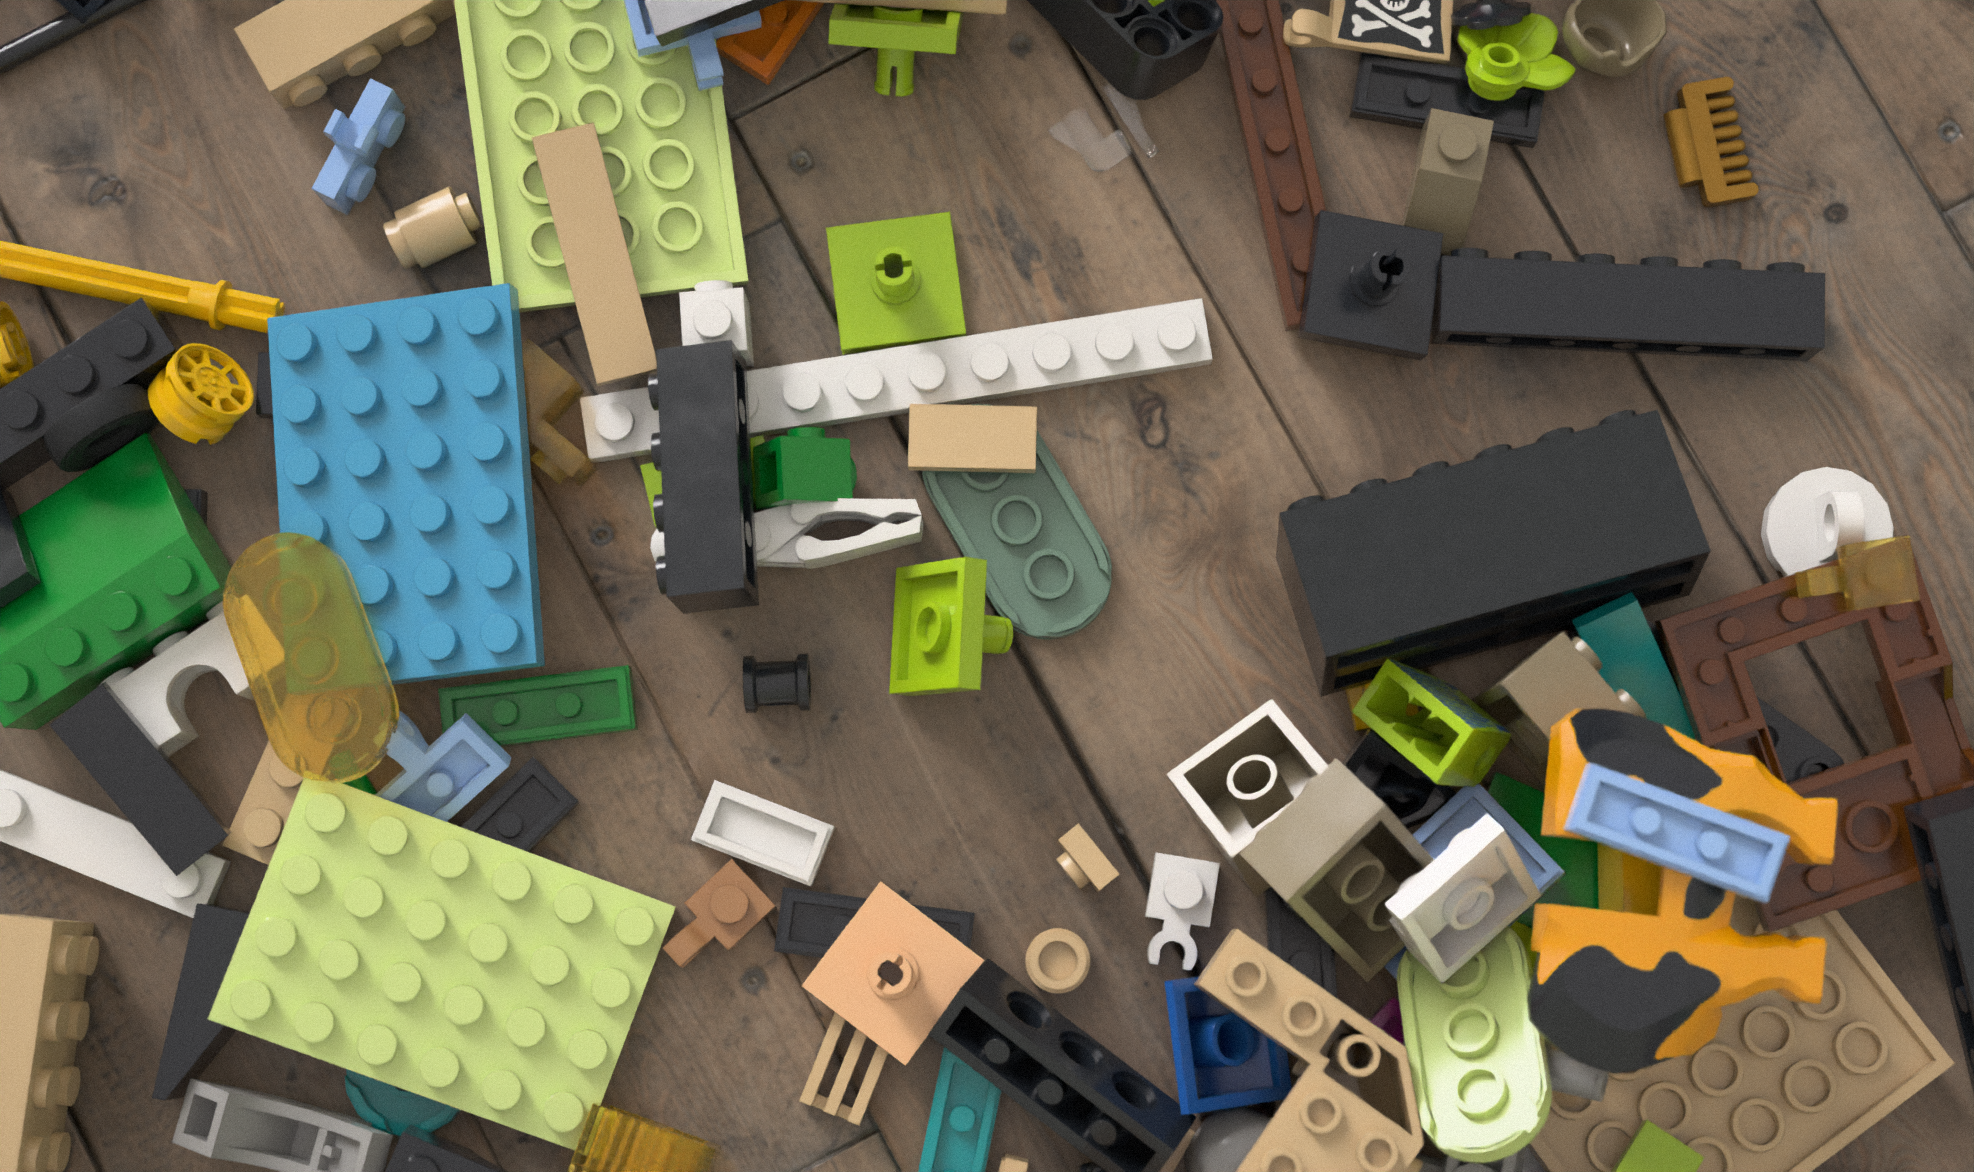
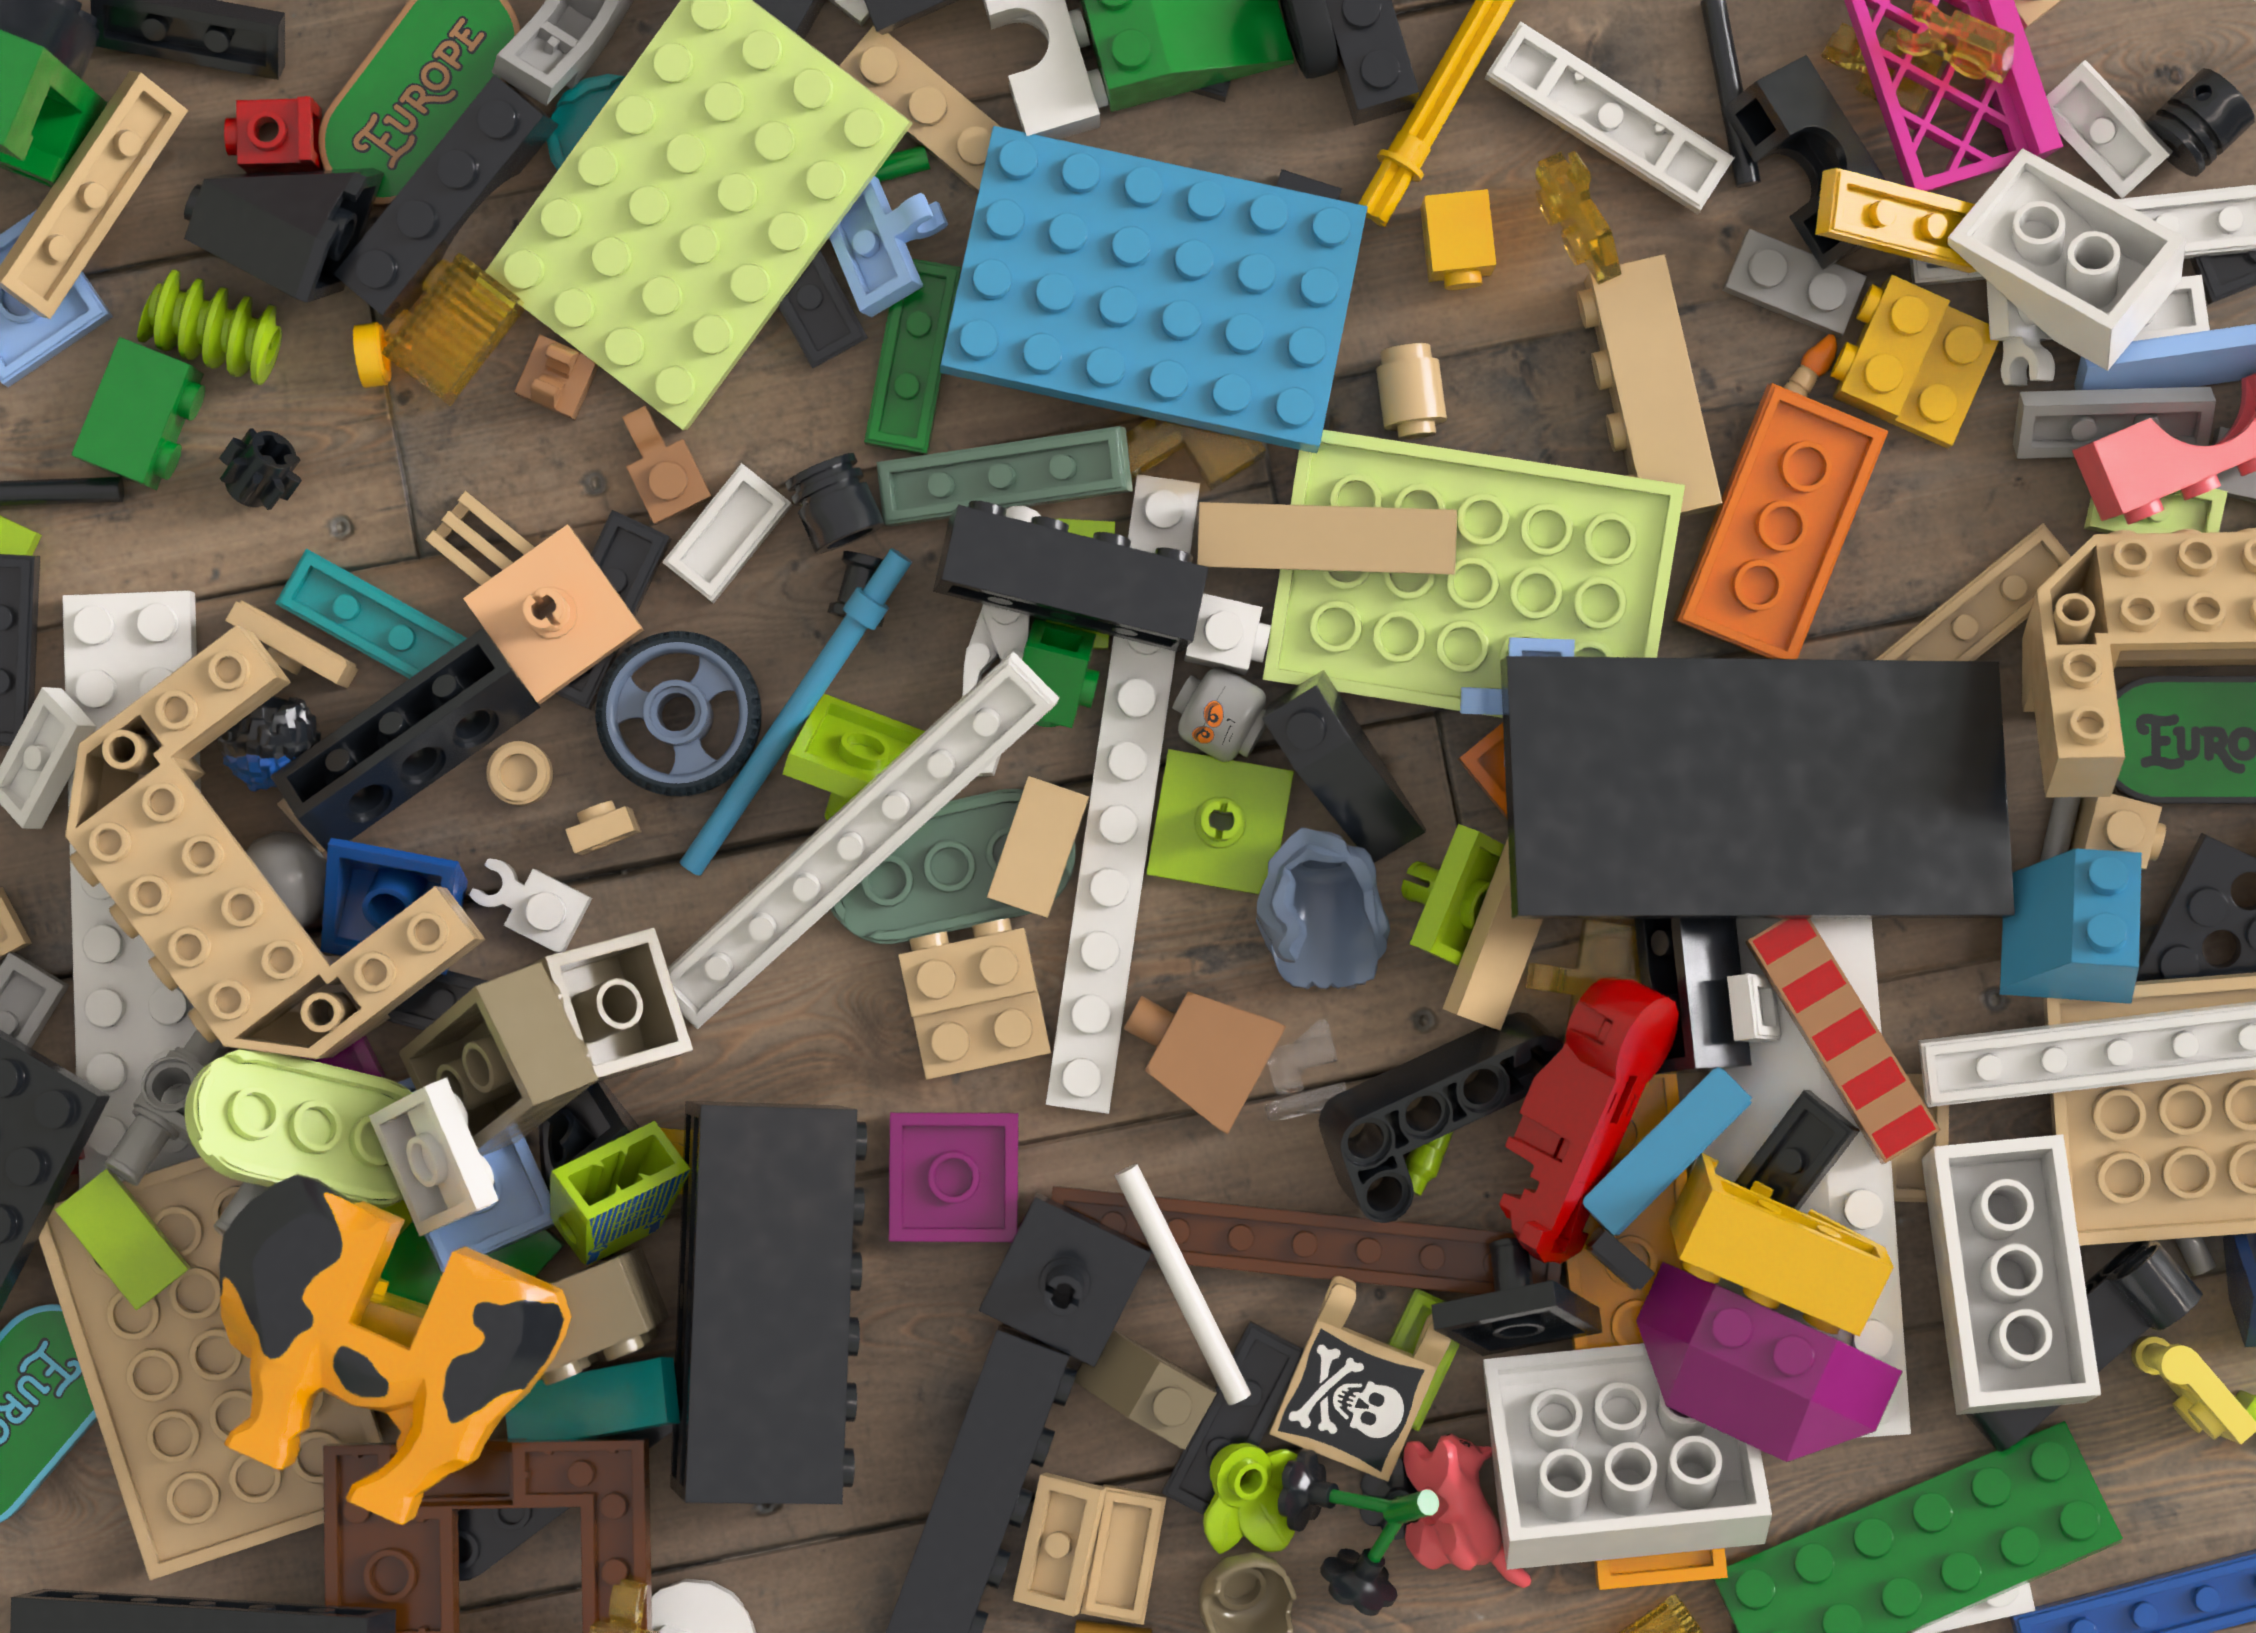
camera: 105 degrees right, 5 degrees up
(120, 127) = (1609, 117): none -> white plate
(197, 397) = (1310, 117): yellow wheel -> none
(213, 125) = (1567, 201): none -> clear yellow plate
(274, 228) = (1458, 238): none -> yellow brick
(310, 658) = (1014, 155): clear yellow tile -> none
(358, 144) = (1515, 341): light blue plate -> none
(627, 579) = (1006, 475): none -> sand green tile
(661, 1048) = (556, 377): none -> medium nougat tile
(702, 734) = (834, 503): none -> black piece
(793, 306) = (1221, 714): none -> light grey head
(797, 666) = (864, 611): none -> dark azure bar
(806, 180) = (1342, 766): none -> black slope
(951, 154) = (1322, 912): none -> sand blue hair
(1000, 790) = (717, 673): none -> sand blue wheel
(1015, 594) = (859, 837): none -> white tile
(1116, 223) = (1206, 1052): none -> medium nougat torso
(1135, 456) = (974, 999): none -> tan plate
(1308, 423) = (953, 1177): none -> magenta plate
(1338, 176) = (1182, 1284): none -> white bar
(1604, 162) = (1124, 1555): none -> tan tile
(1616, 218) = (1059, 1544): none -> tan plate
(1676, 833) = (416, 1362): light blue tile -> none

